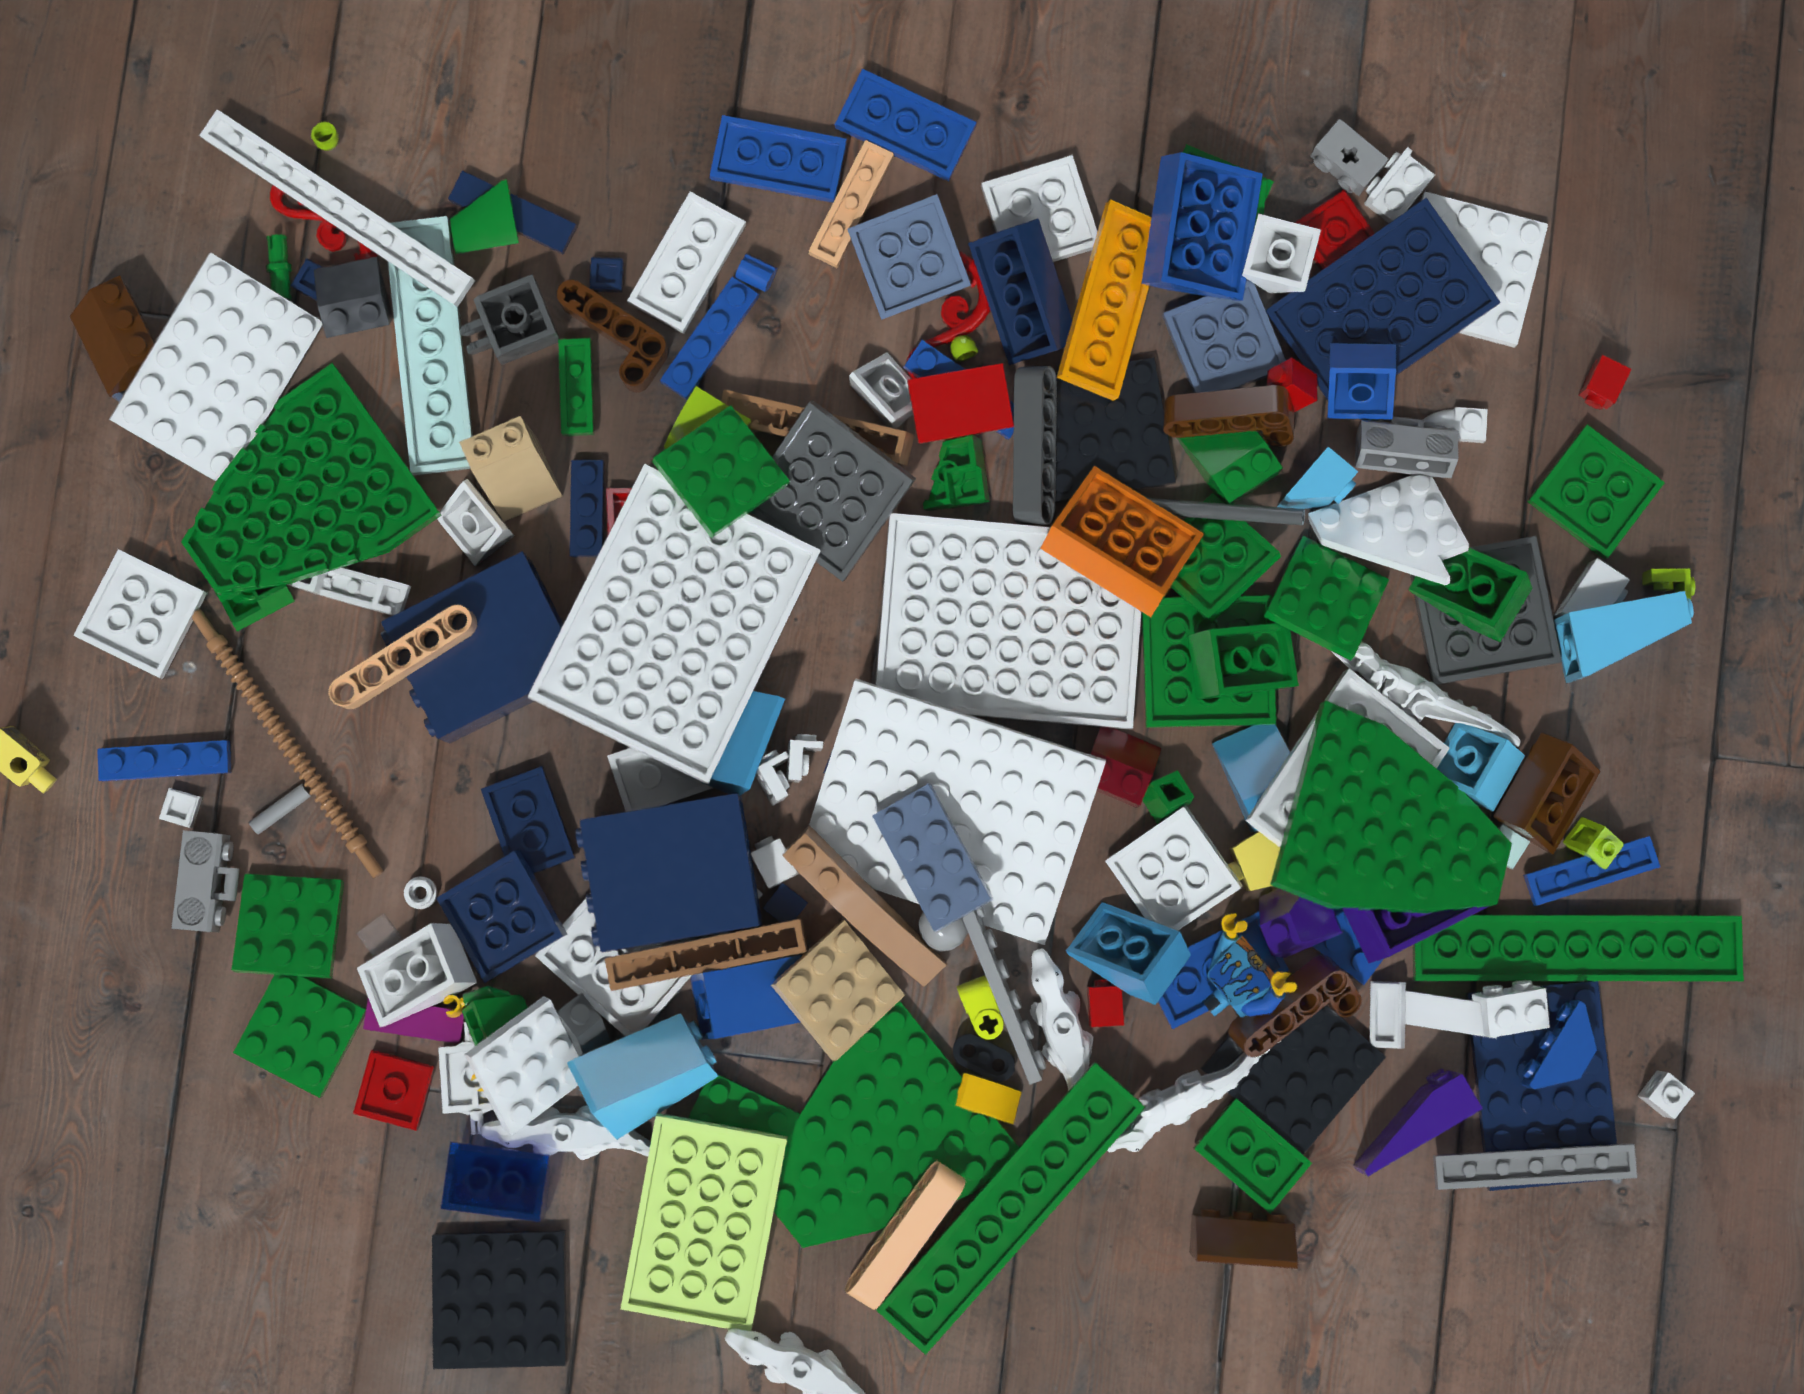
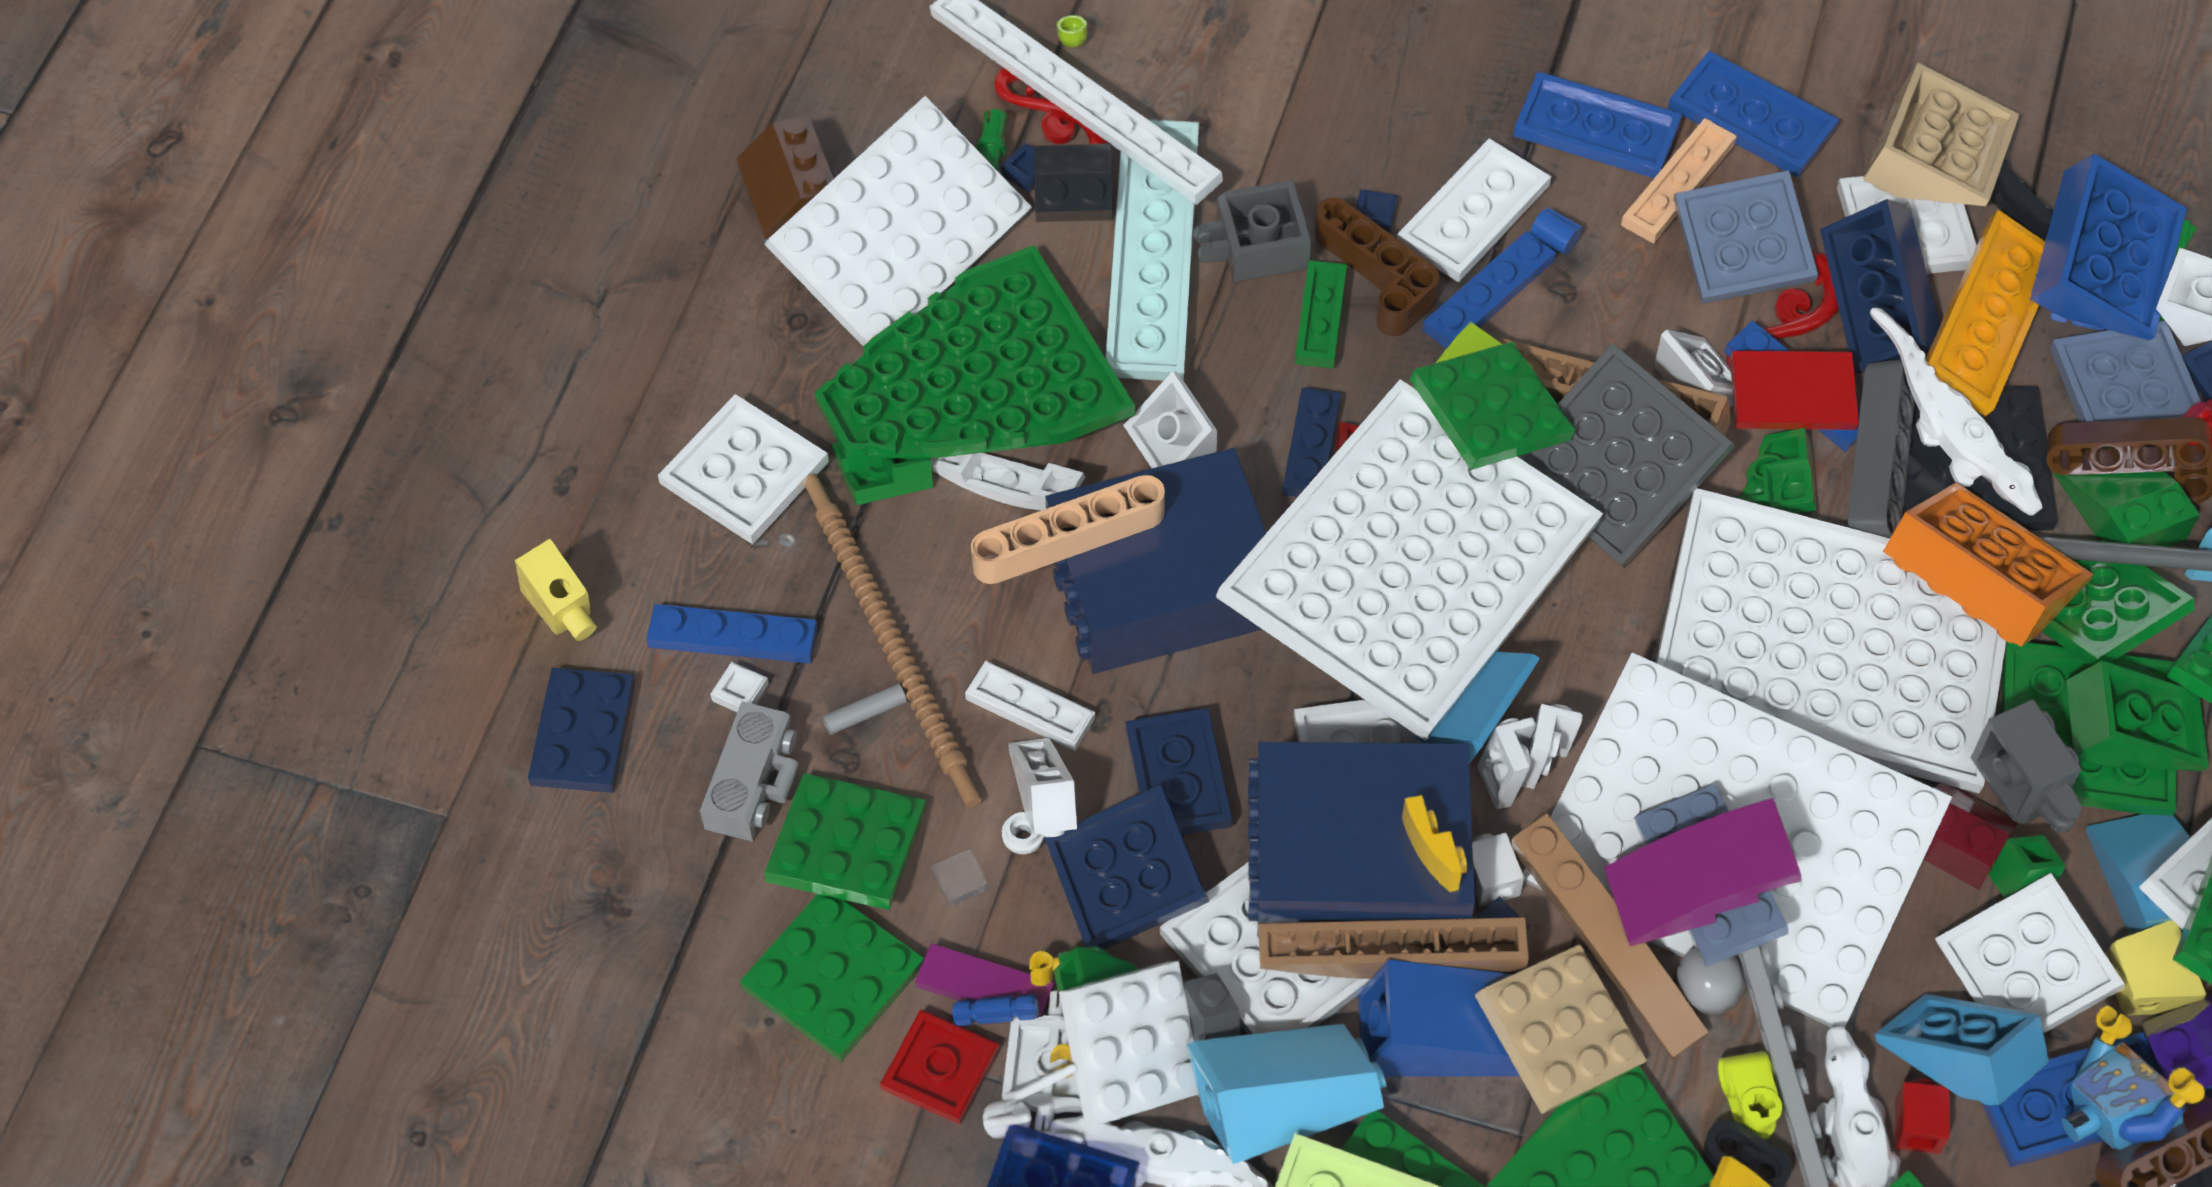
camera: 10 degrees right, 25 degrees down
(67, 864) = (582, 730): none -> dark blue plate
(406, 782) = (1030, 705): none -> white tile
(416, 973) = (1001, 919): white slope -> none
(425, 1044) = (995, 1009): none -> blue axle
(426, 858) = (1044, 787): none -> white slope
(450, 1129) = (1012, 1112): none -> white plant
(486, 221) = (1244, 133): green slope -> none
(511, 468) = (1235, 360): tan slope -> none
(530, 219) = (1274, 135): dark blue tile -> none
(727, 898) = (1434, 849): none -> yellow slope
(923, 871) = (1702, 872): none -> magenta slope
(963, 348) = (1800, 340): lime hinge -> none
(1061, 139) = (1941, 142): none -> tan slope
(1086, 419) = (1954, 425): none -> white animal
(1124, 174) = (2019, 203): none -> black hinge
(1164, 723) = (2029, 767): none -> dark grey hinge

